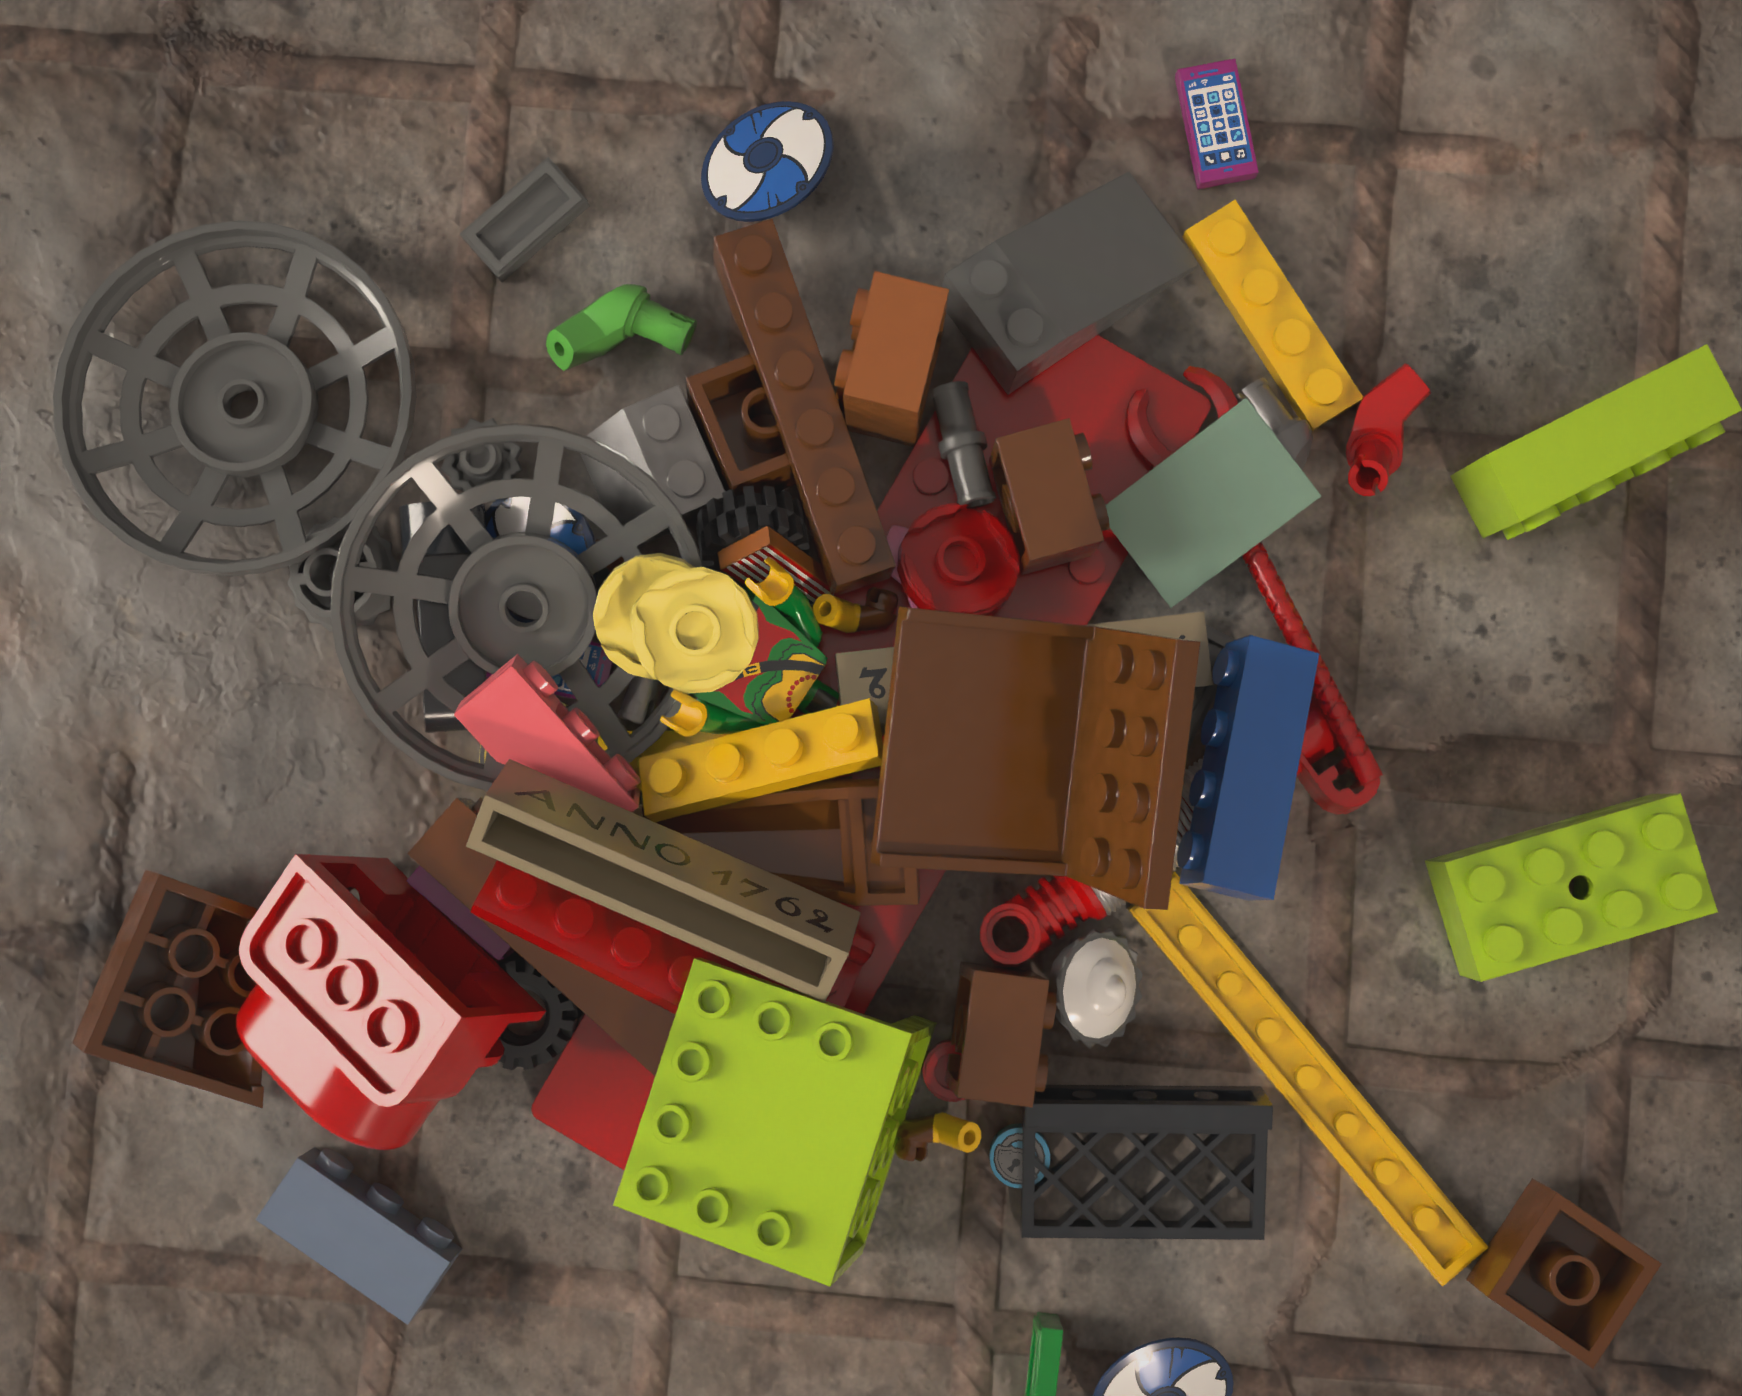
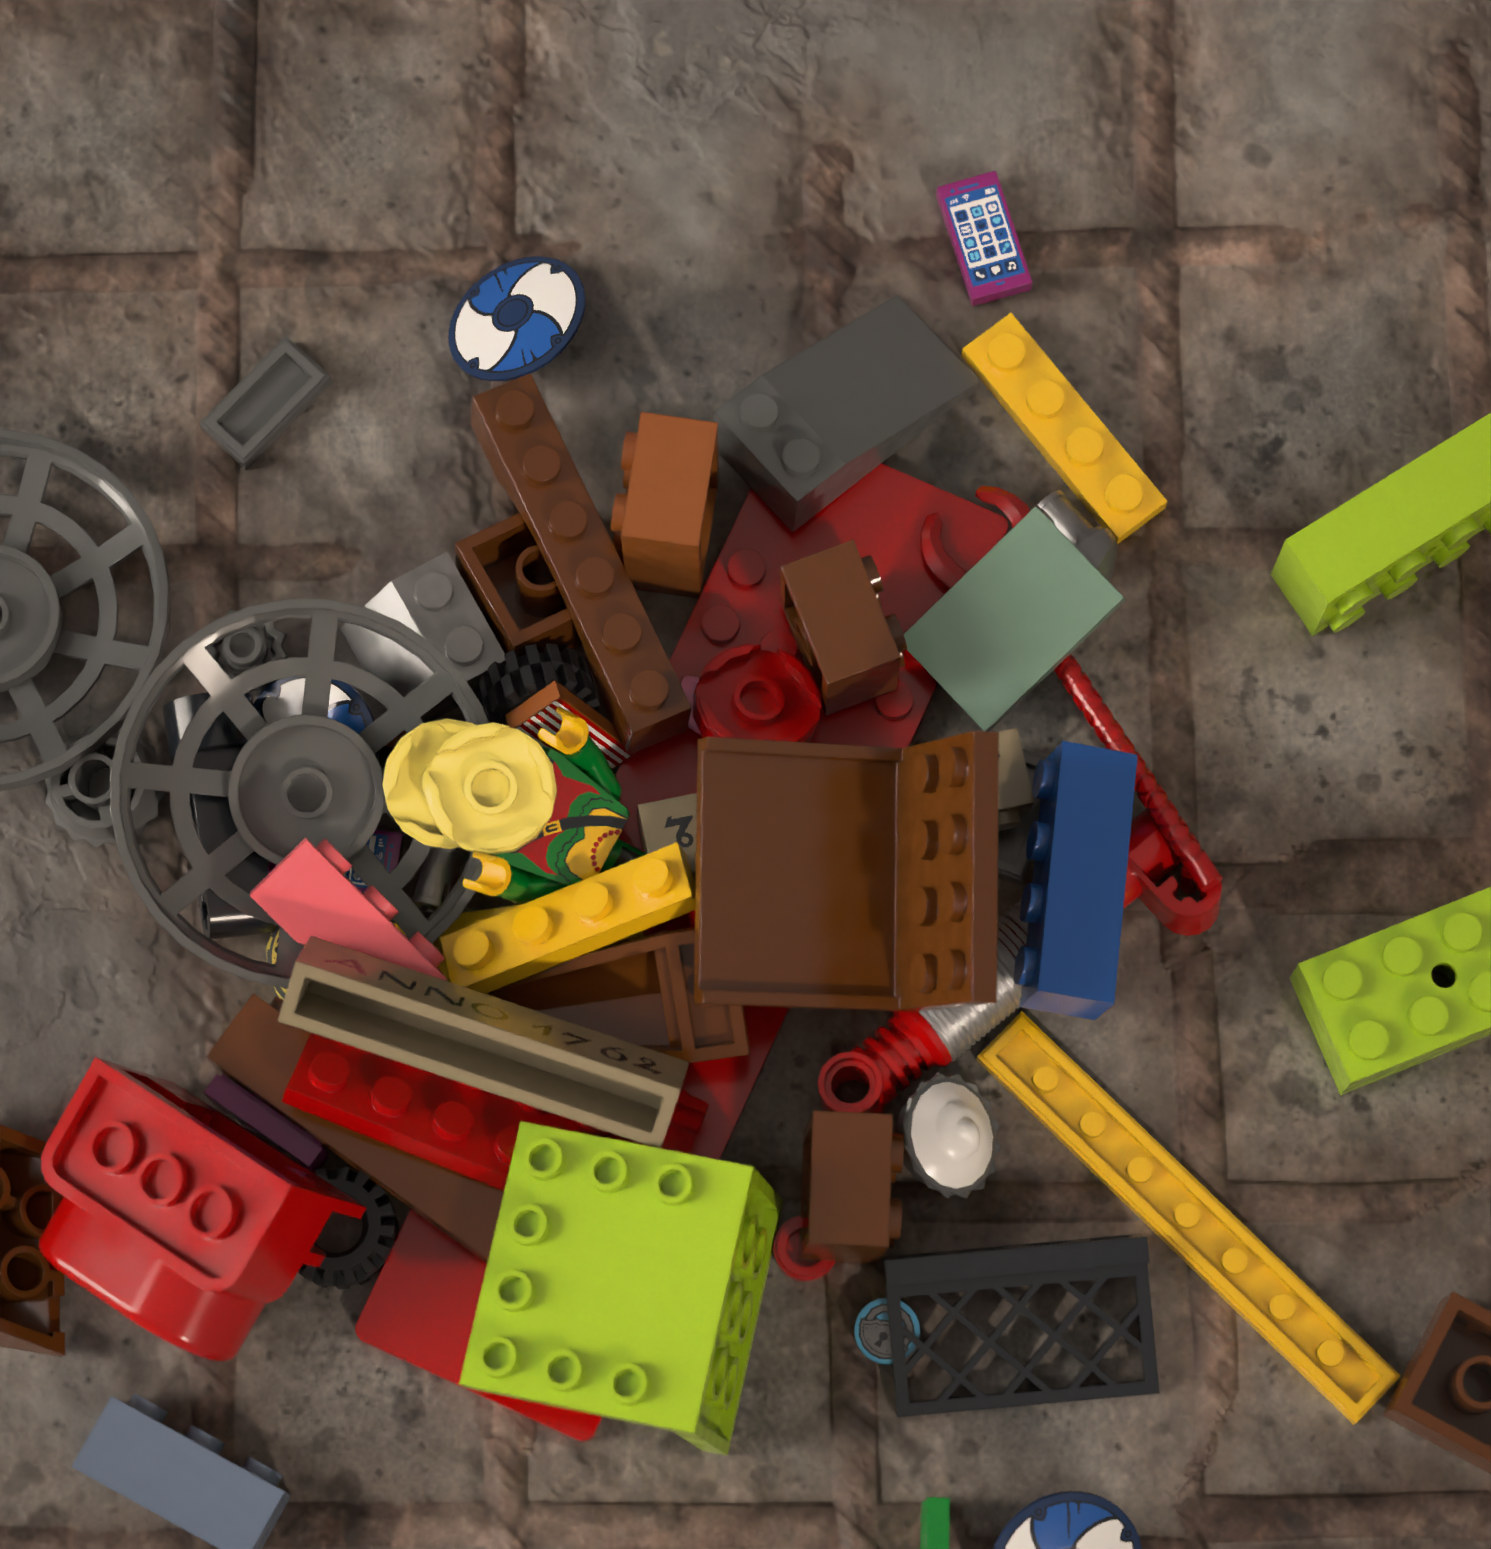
camera: 10 degrees left, 10 degrees down
(614, 319) = (369, 496): bright green arm -> none
(852, 617) = (650, 774): arm -> none
(935, 1128) = (795, 1308): arm -> none
(962, 444) = (750, 585): dark grey pin -> none
(1378, 429) = (1186, 530): red arm -> none

